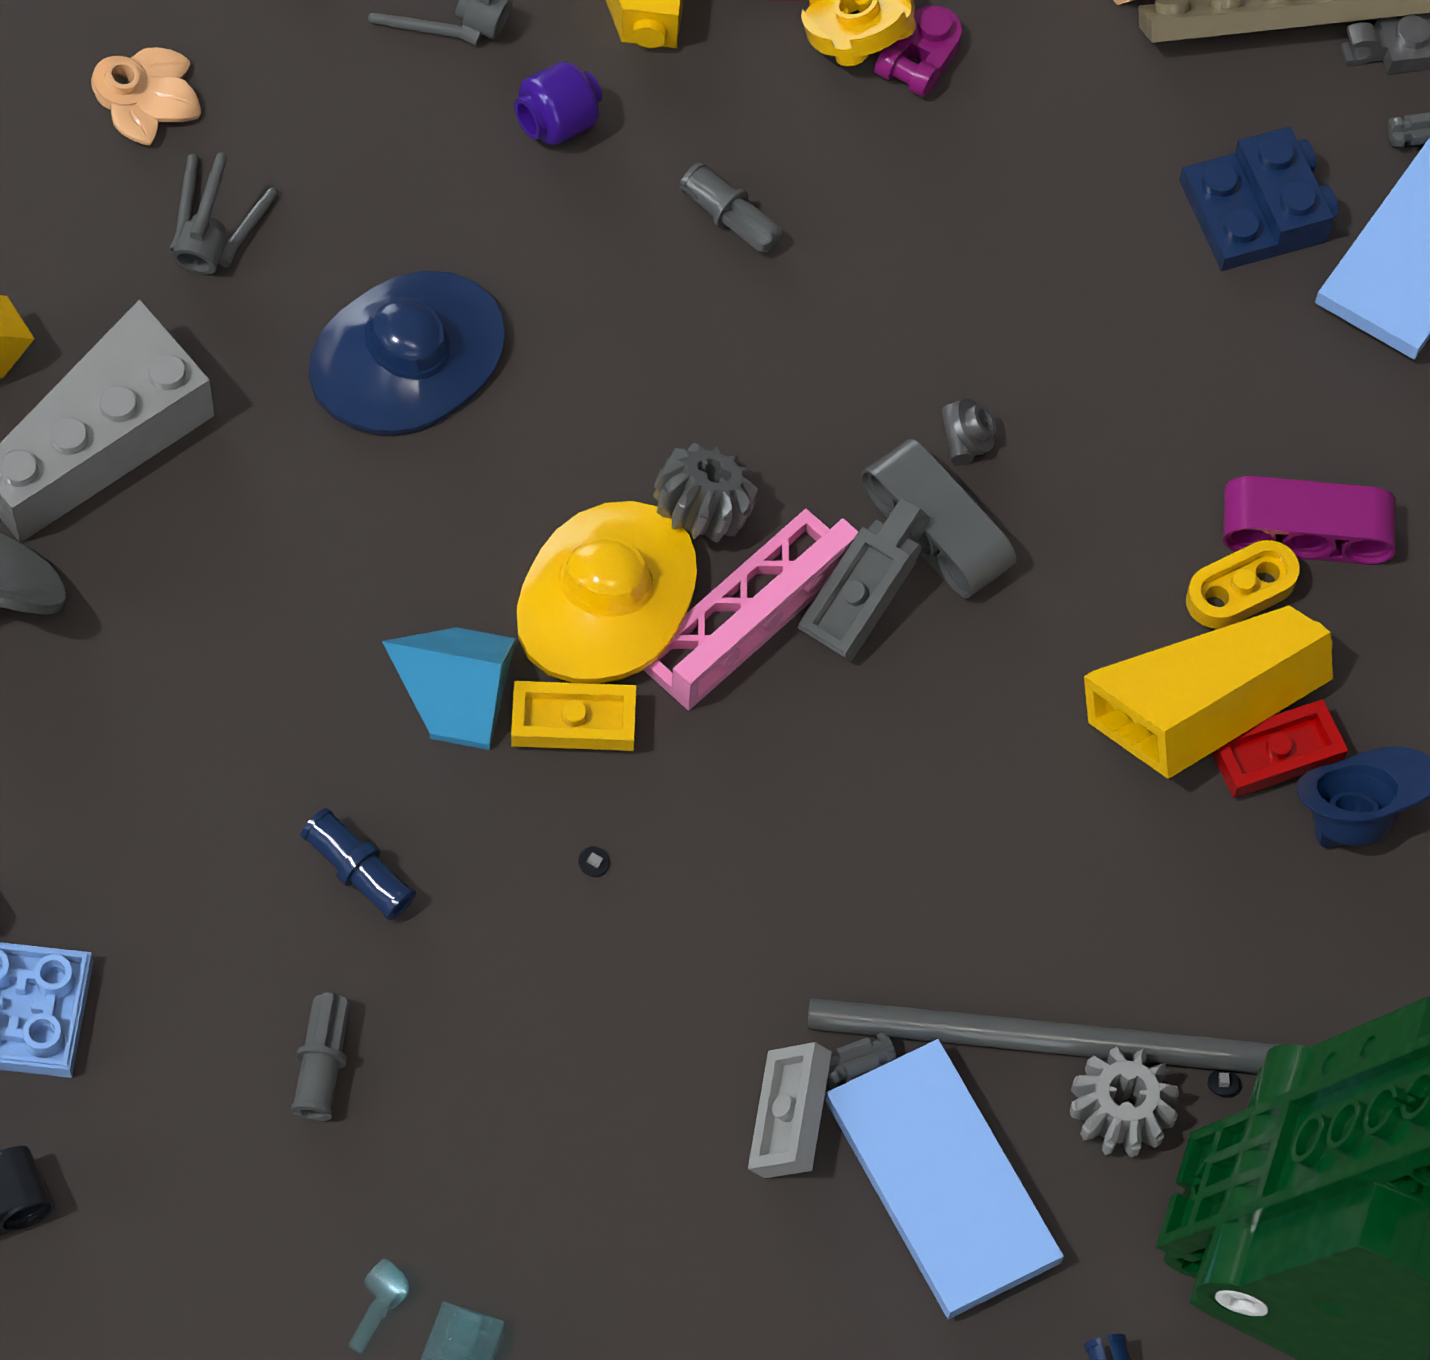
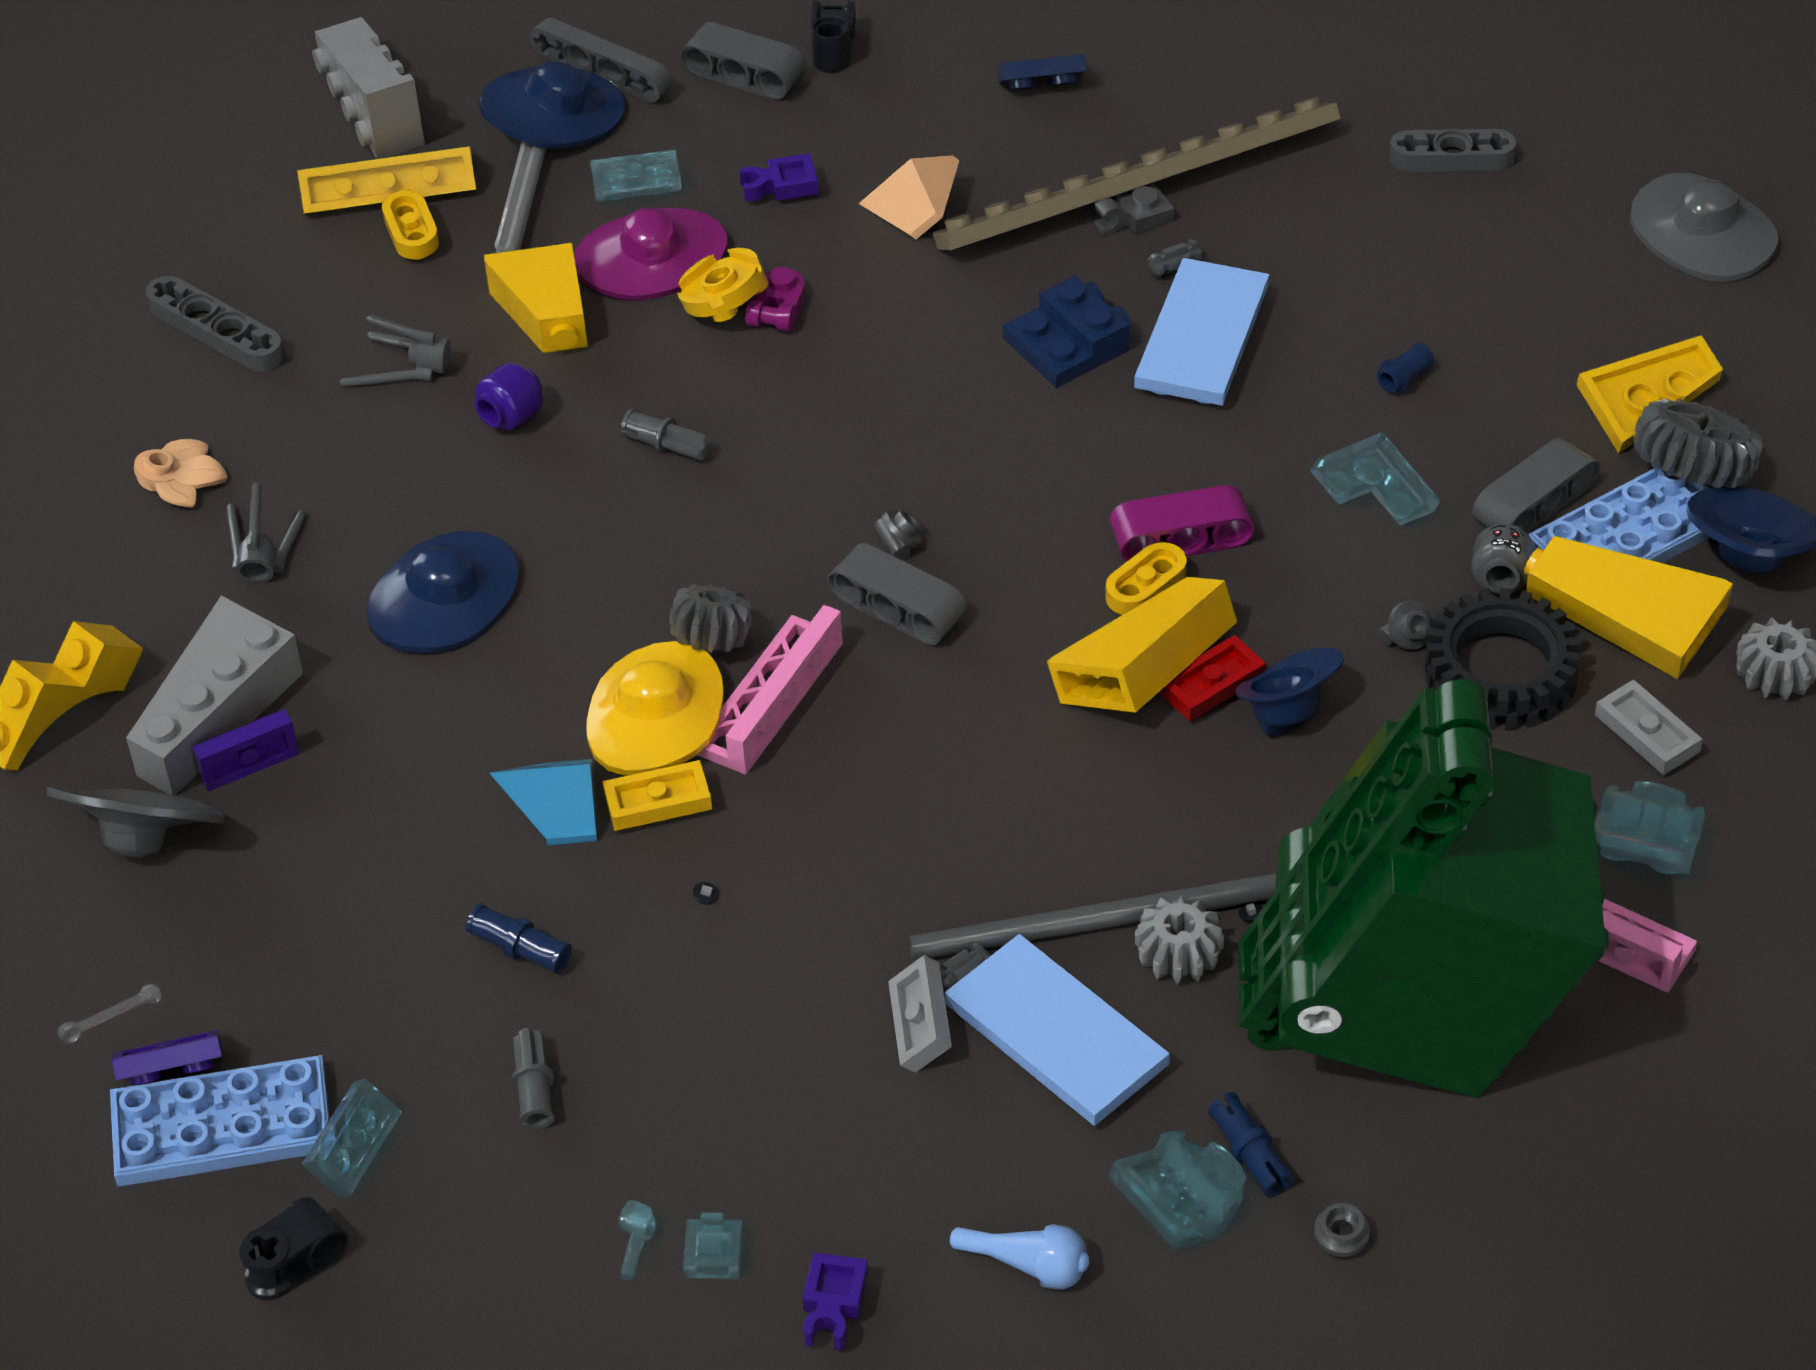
camera: 10 degrees left, 15 degrees down
(93, 1077) = (352, 1138): none -> clear light blue plate
(115, 512) = (246, 750): none -> dark purple plate
(865, 581) = (855, 645): dark grey hinge -> none

